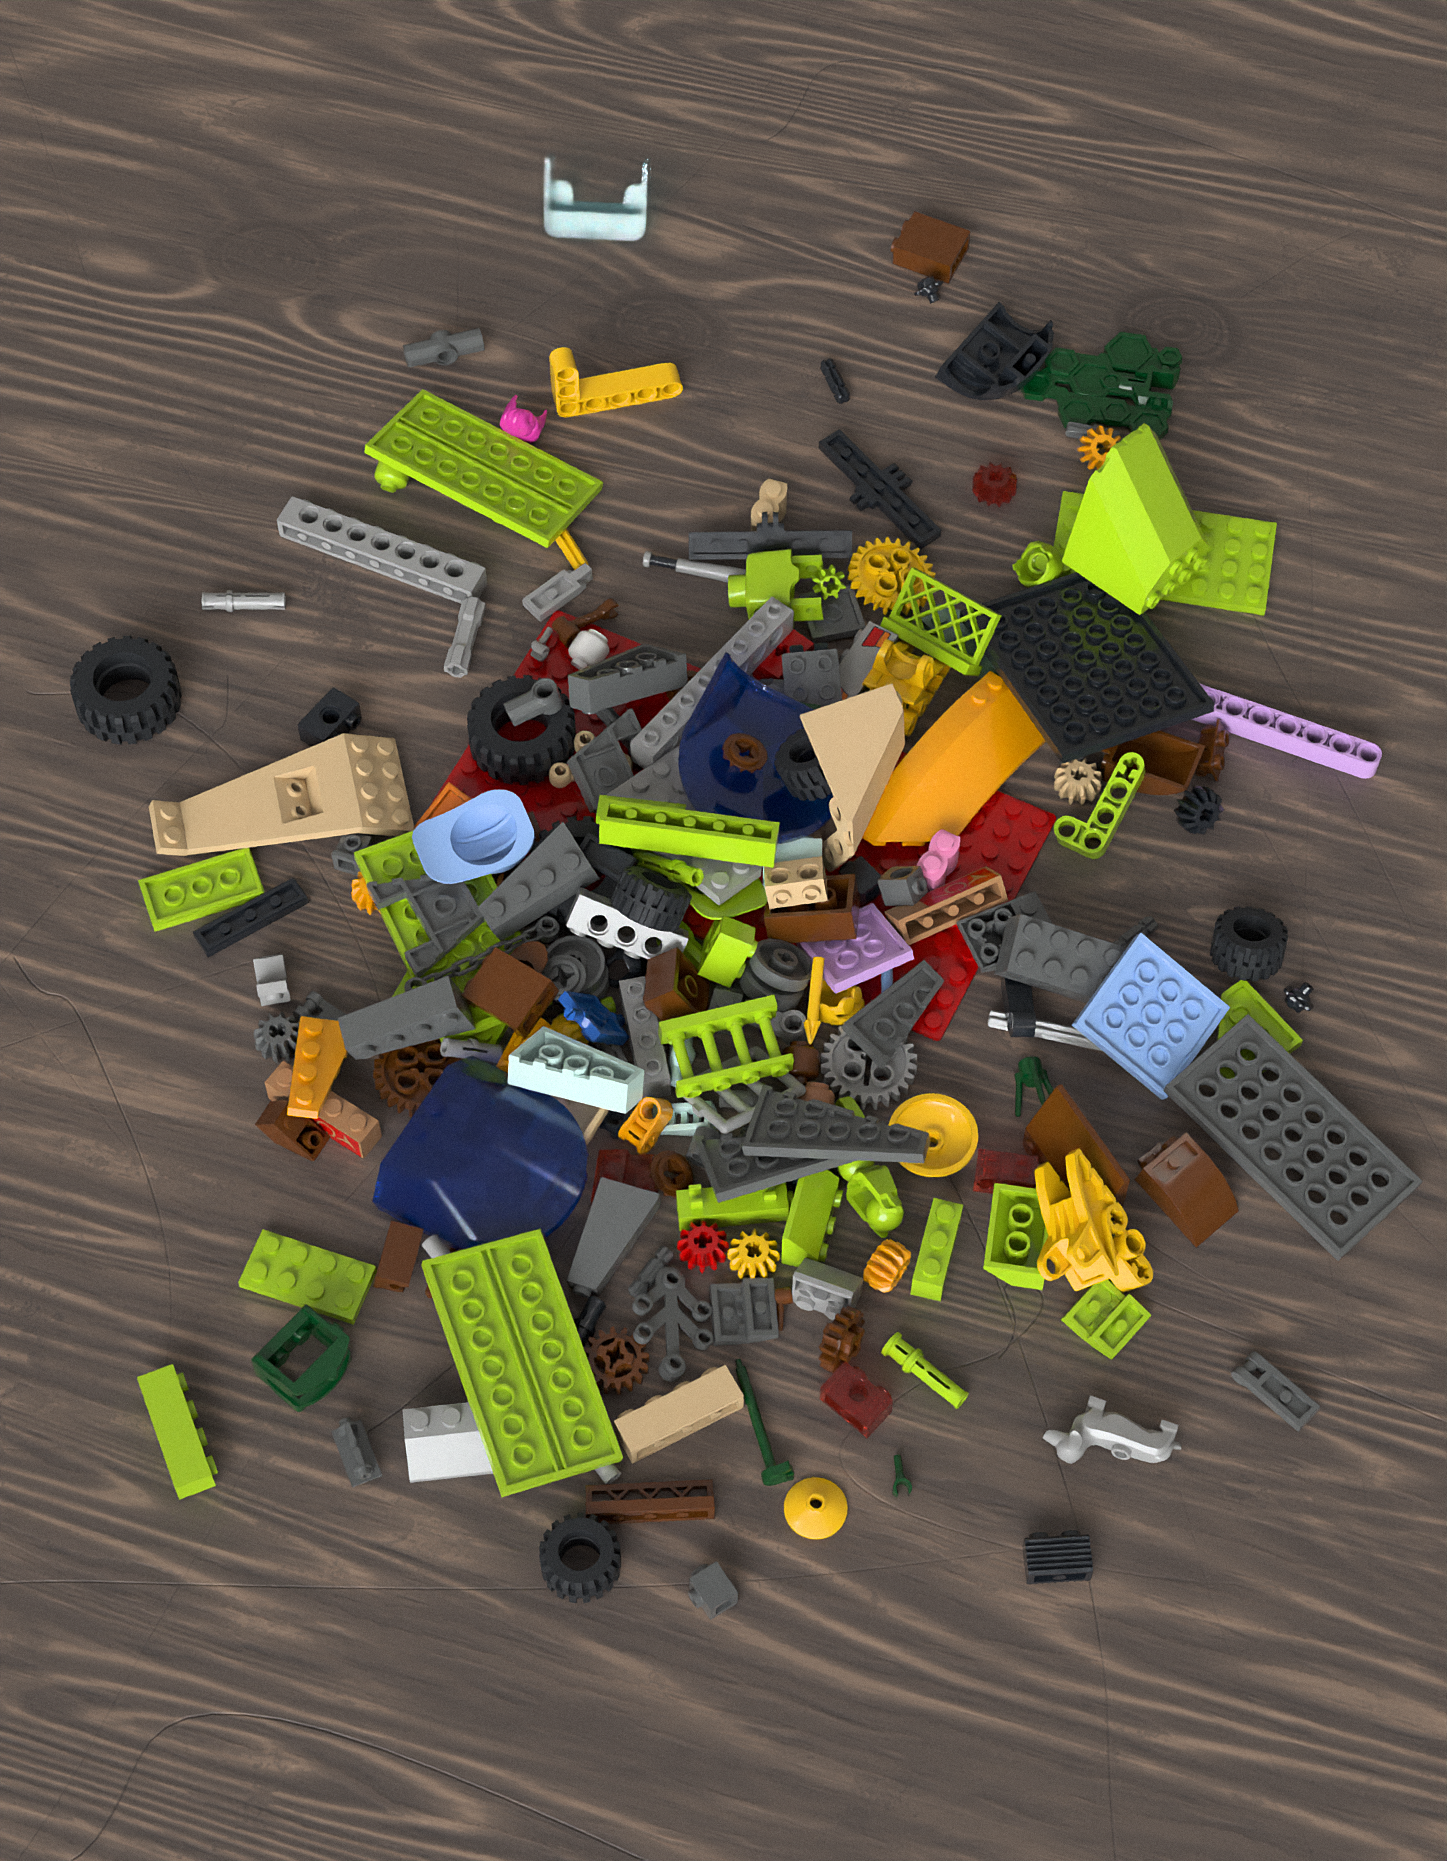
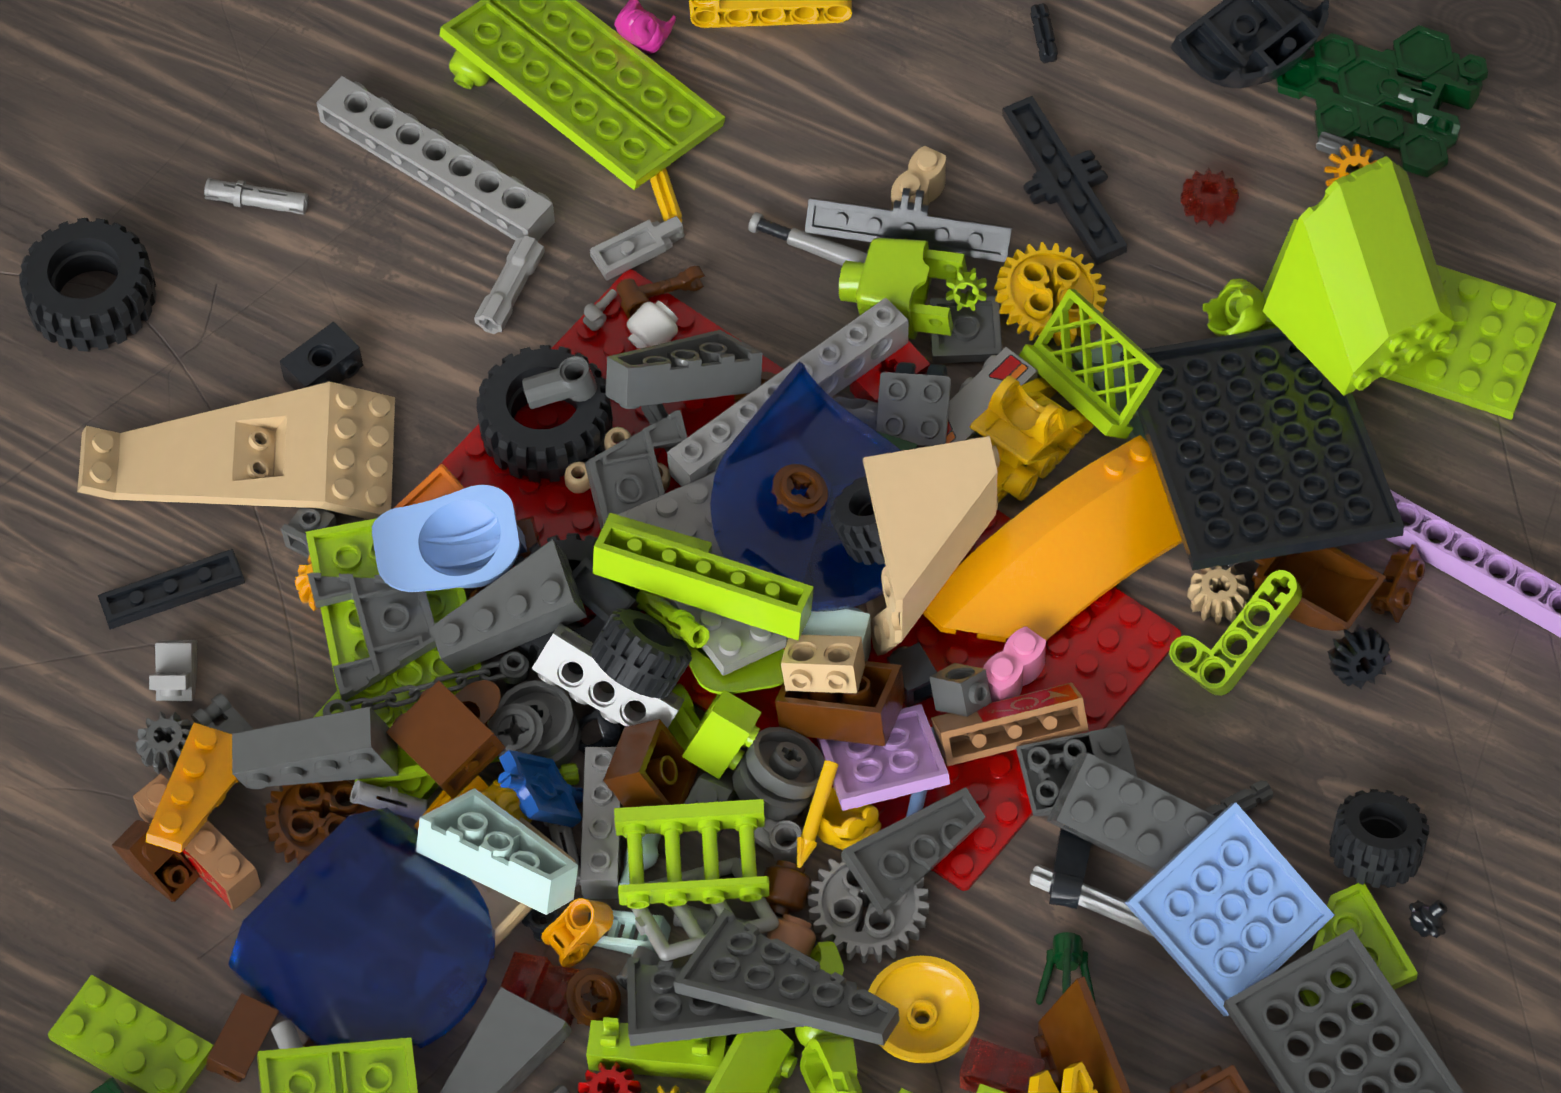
camera: 15 degrees right, 0 degrees up
(201, 888) = (121, 543): lime tile -> none

